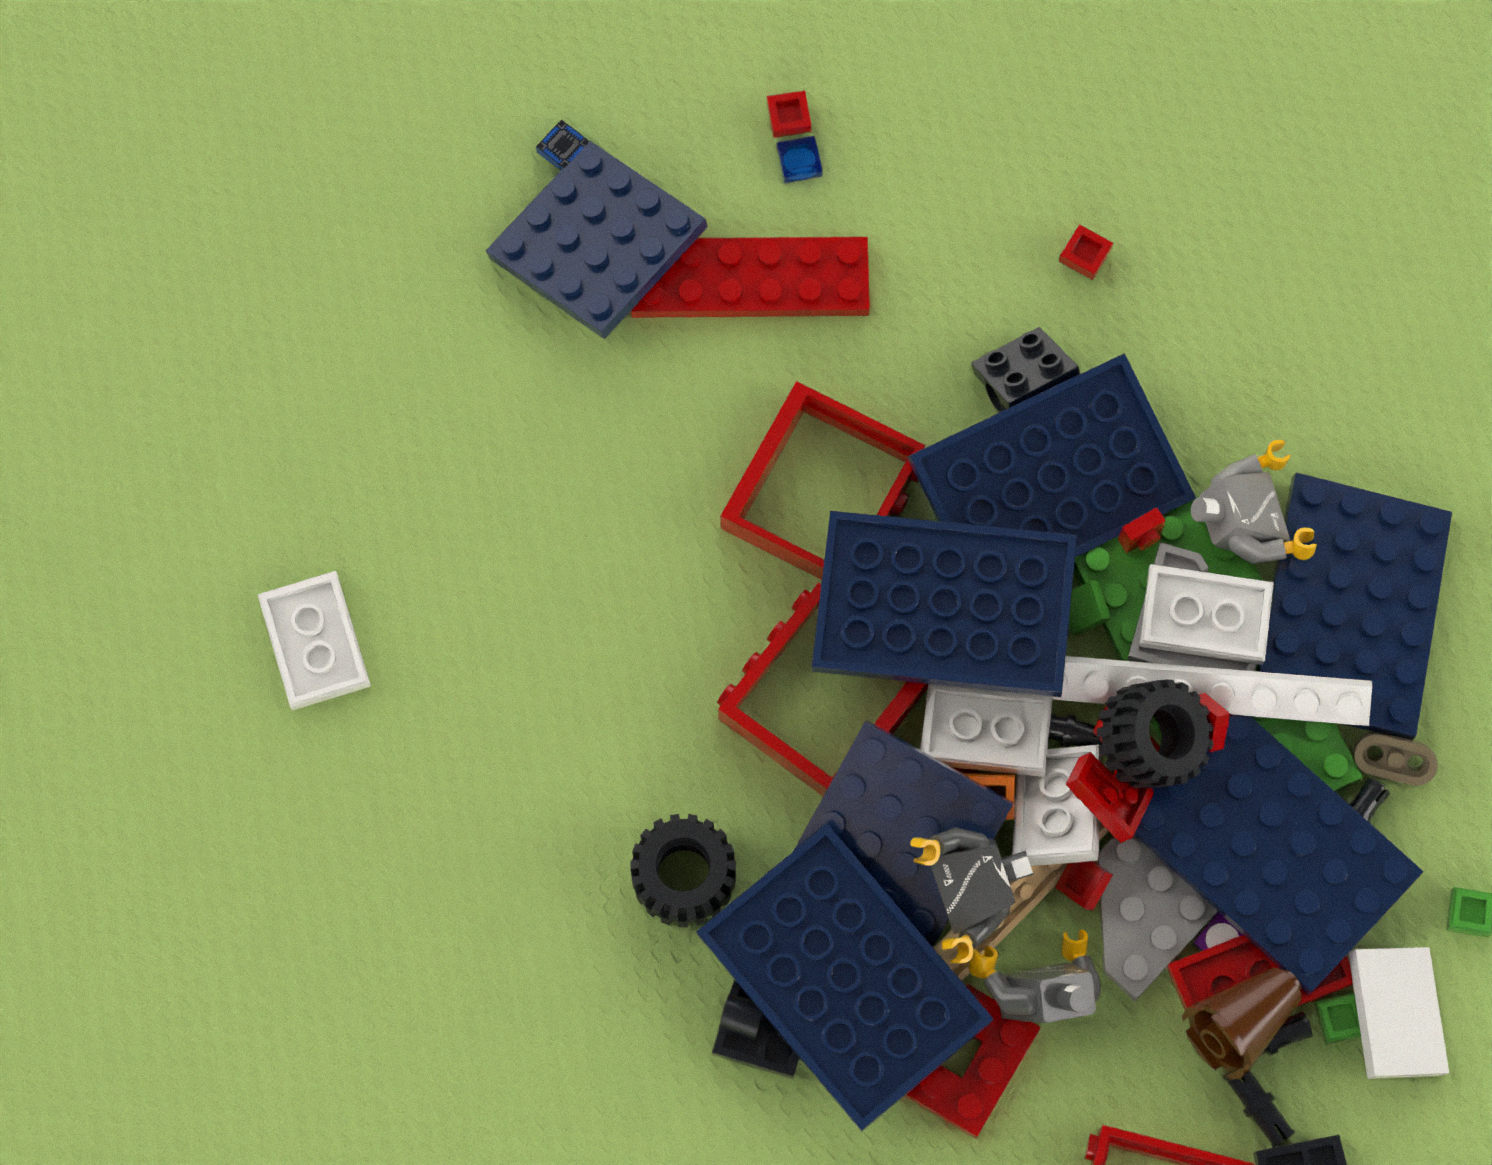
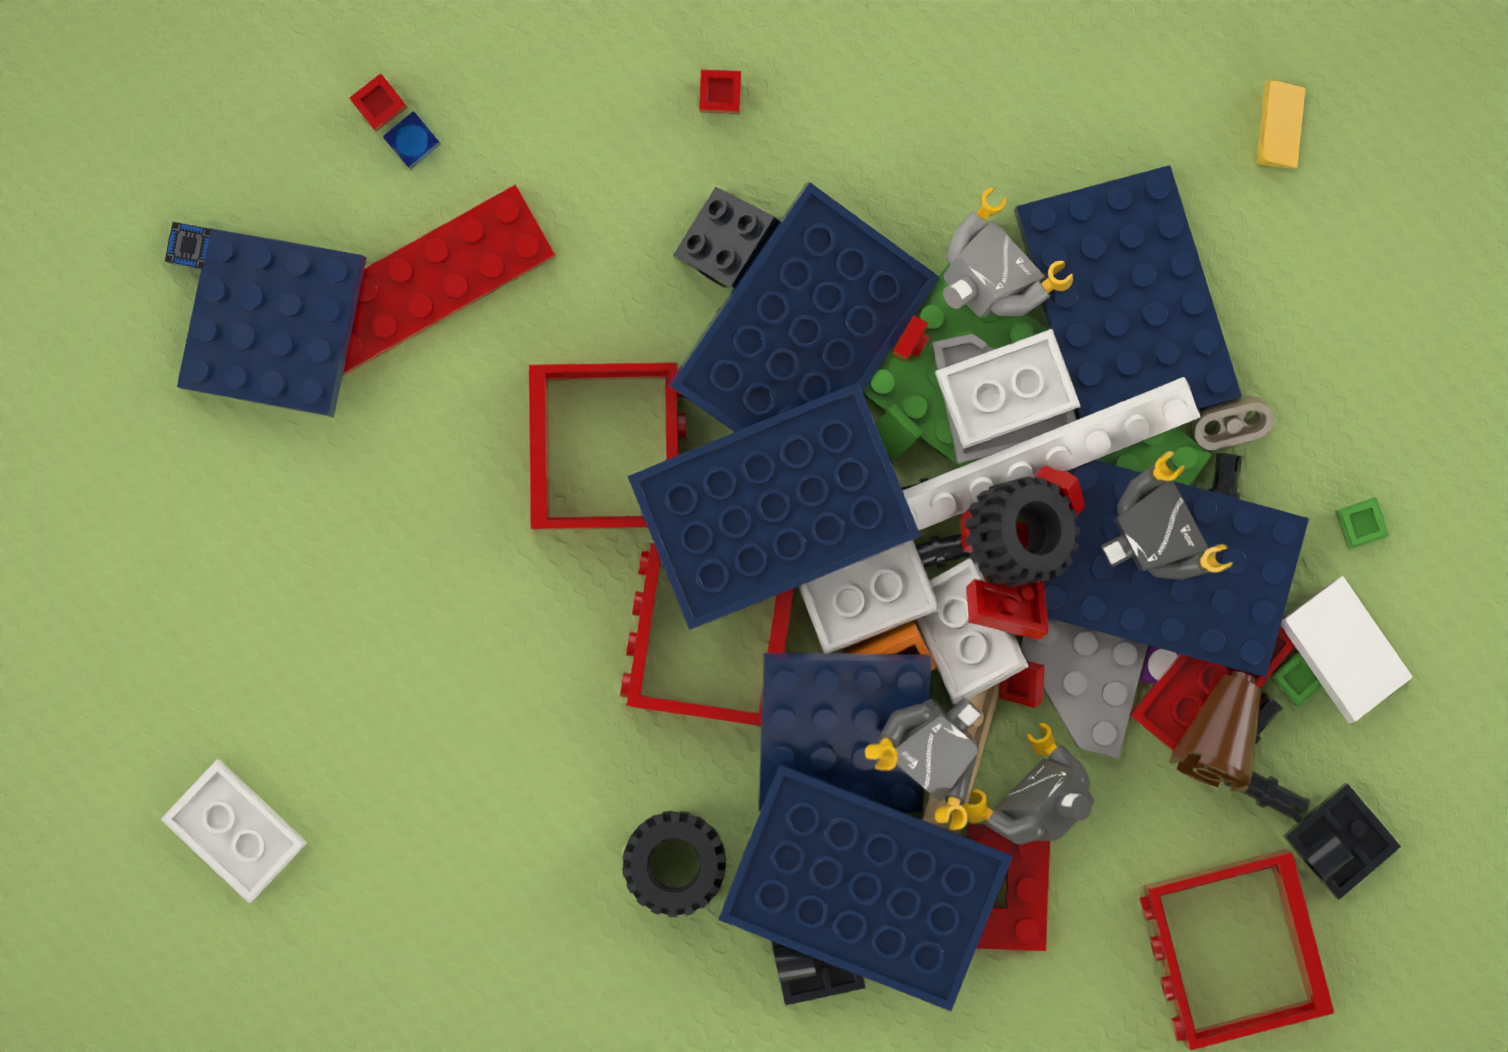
camera: 30 degrees left, 15 degrees up
(1282, 799) = (1159, 529): none -> dark grey torso

